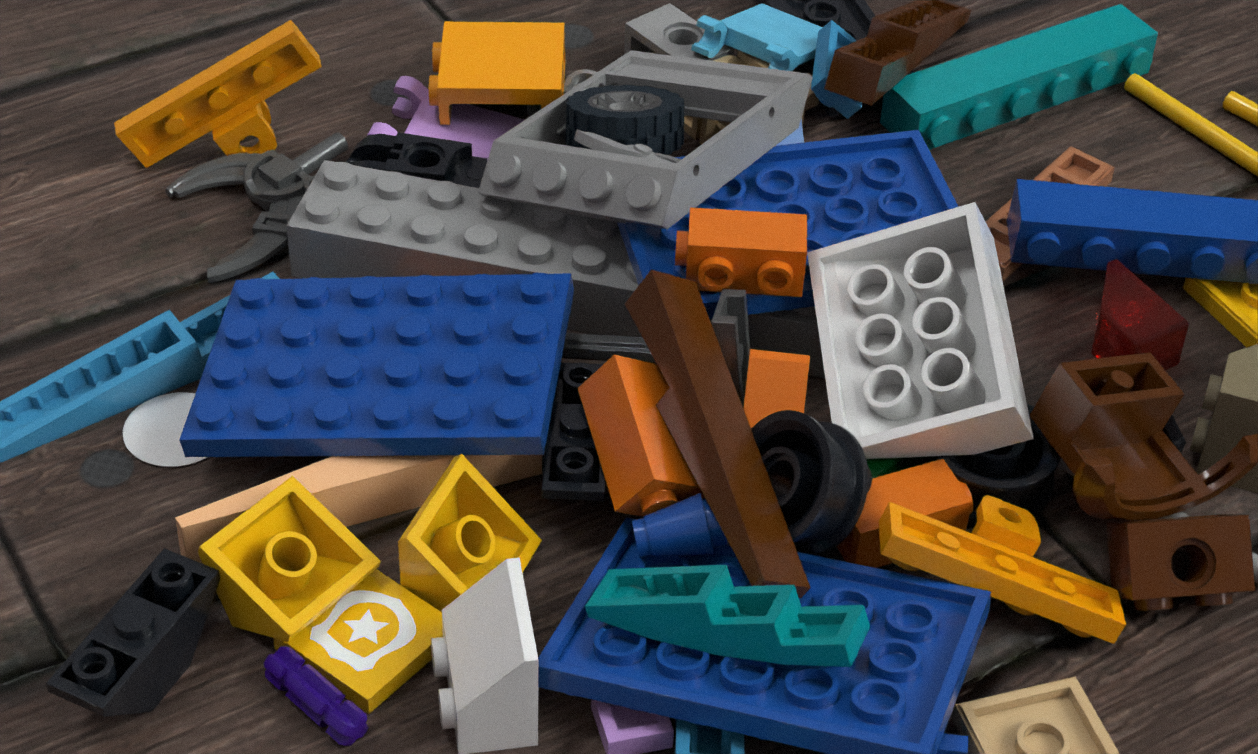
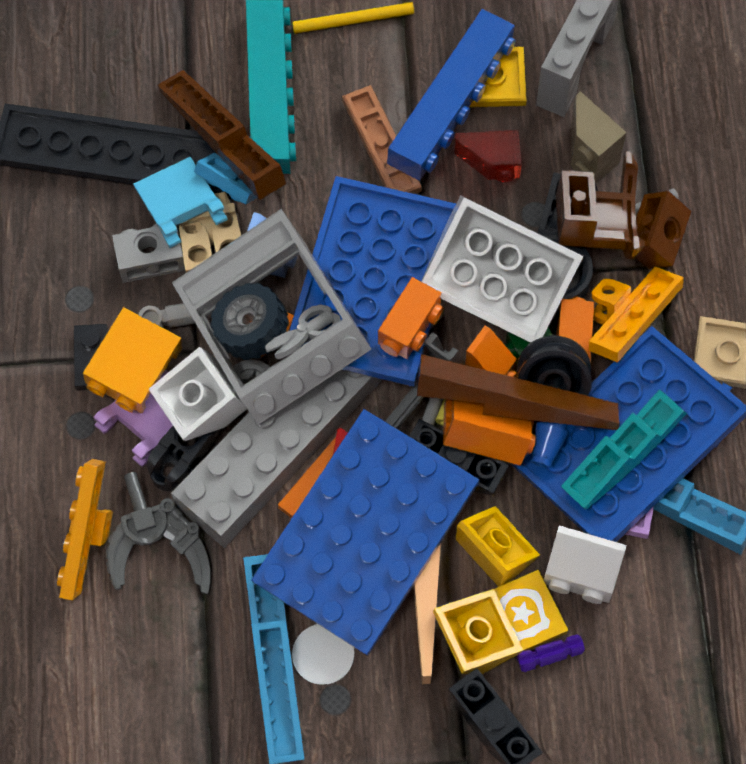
camera: 60 degrees left, 25 degrees up
(467, 121) = (197, 396): none -> white slope

